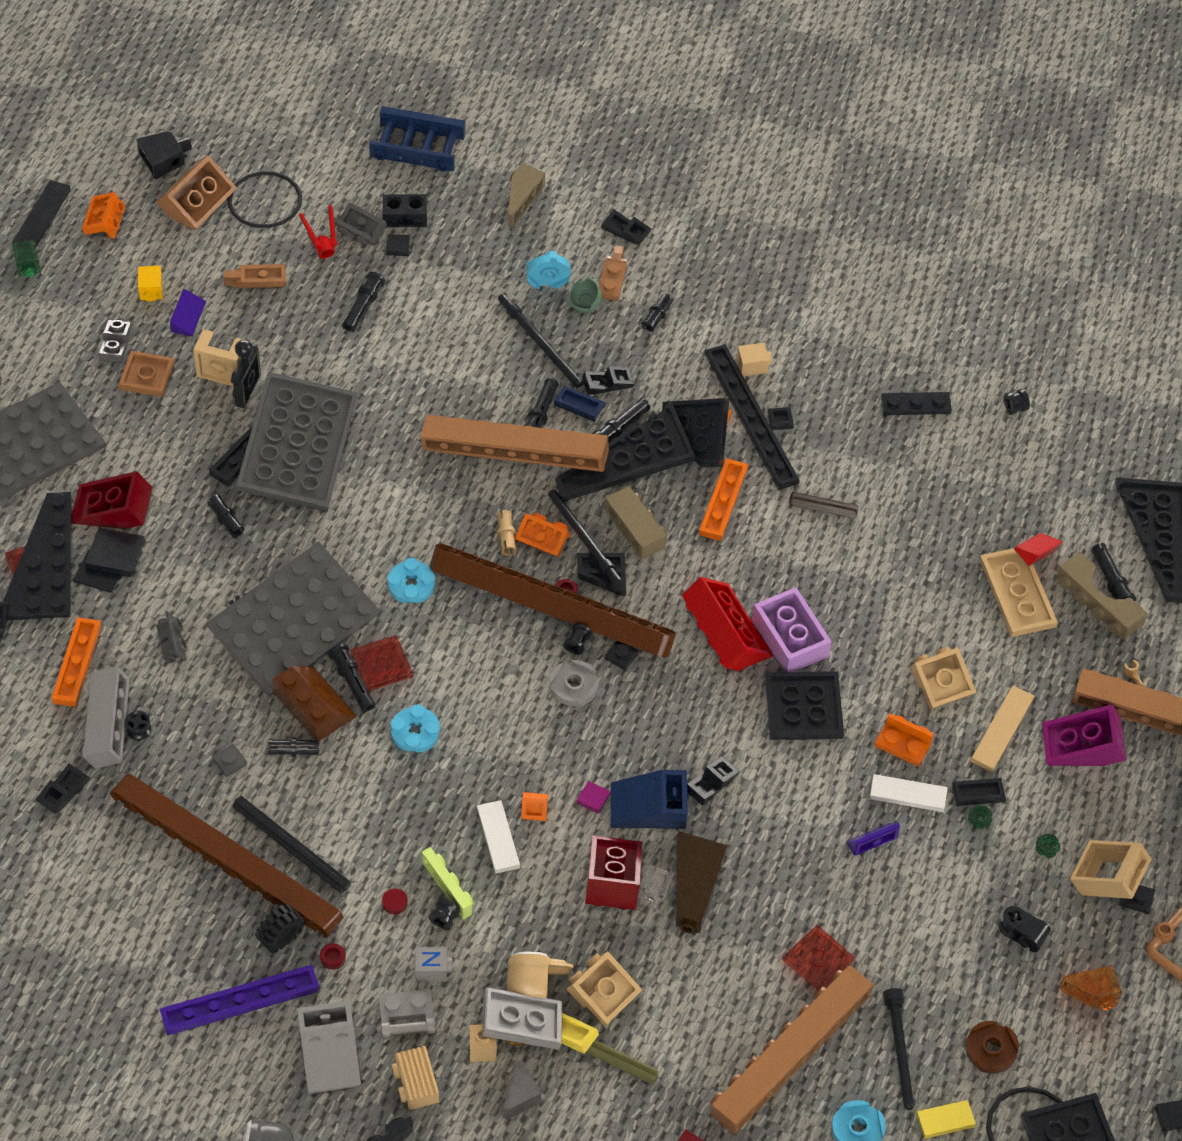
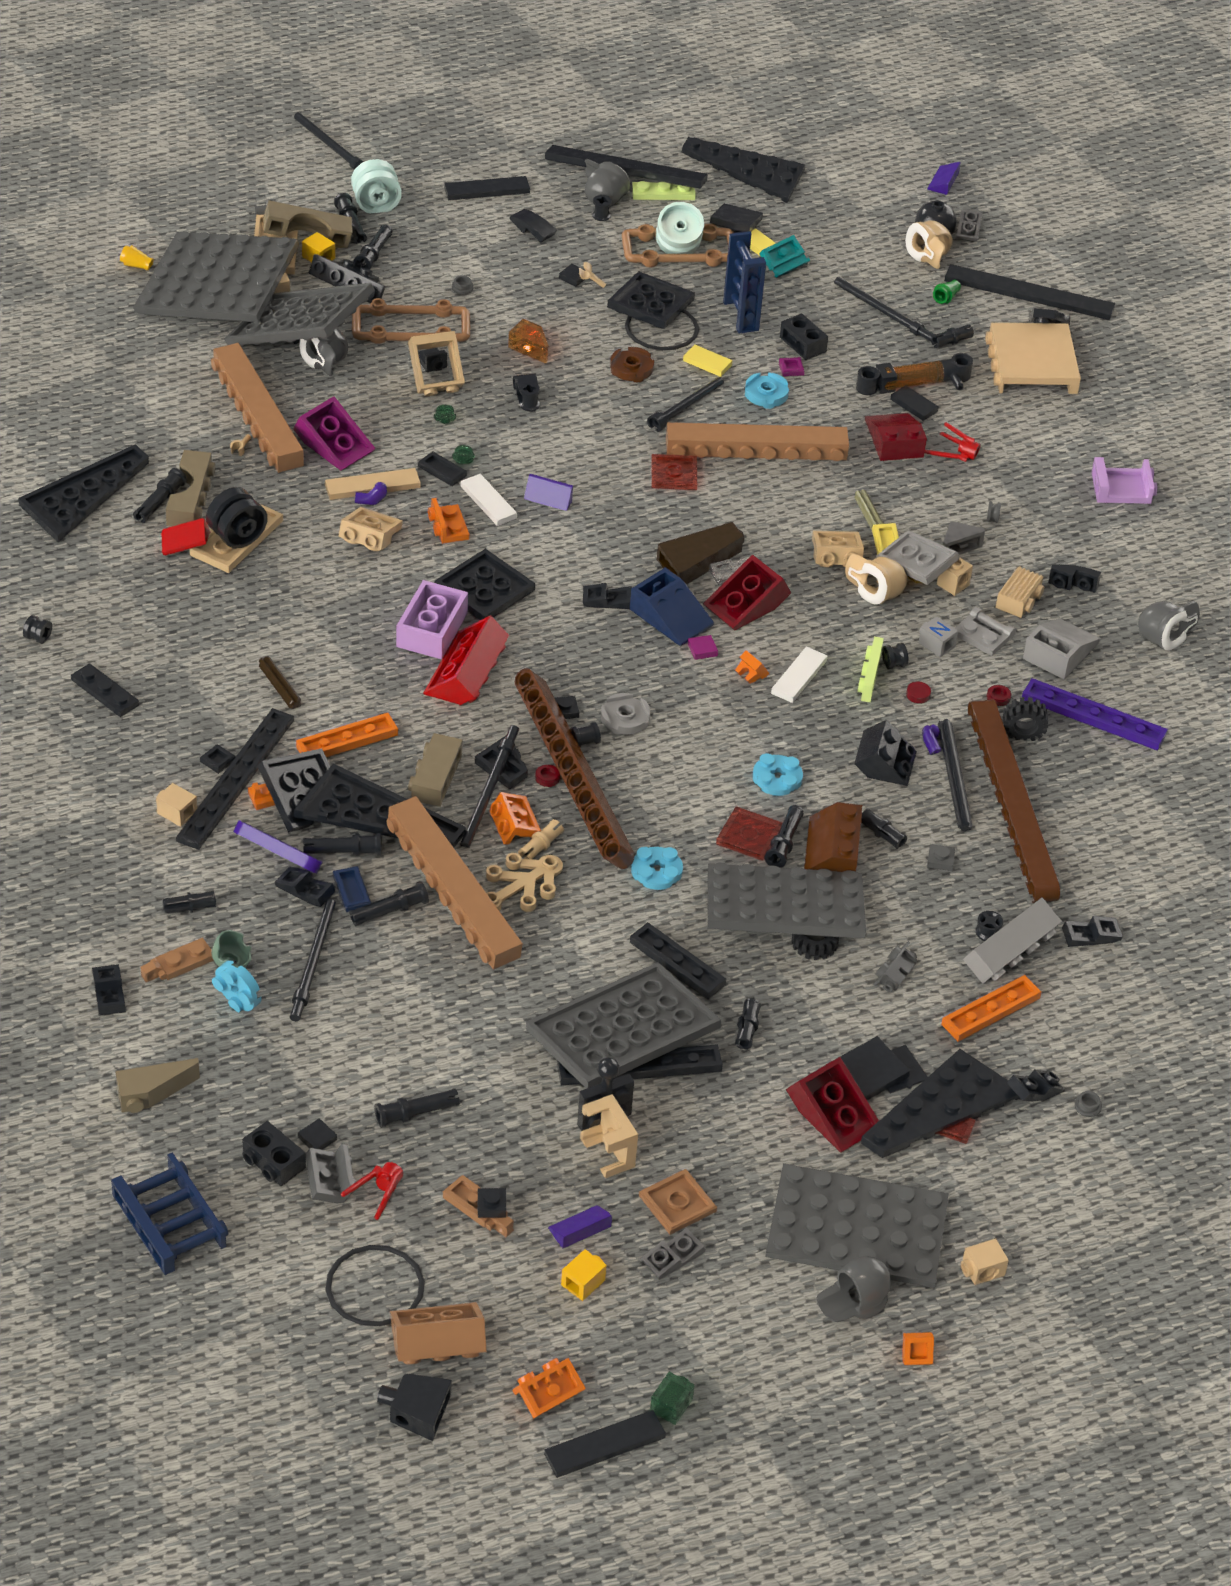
camera: 135 degrees left, 10 degrees down
(245, 273) = (491, 1202): none -> black plate
(319, 522) = (678, 960): none -> black plate
(347, 865) = (929, 737): none -> dark purple arm
(353, 808) = (885, 754): none -> black slope
(481, 497) = (525, 880): none -> tan plant
(656, 385) = (277, 846): none -> beam
(985, 714) = (374, 496): none -> dark purple arm
(1011, 569) = (236, 517): none -> black wheel
(1159, 1116) = (588, 274): none -> tan hand

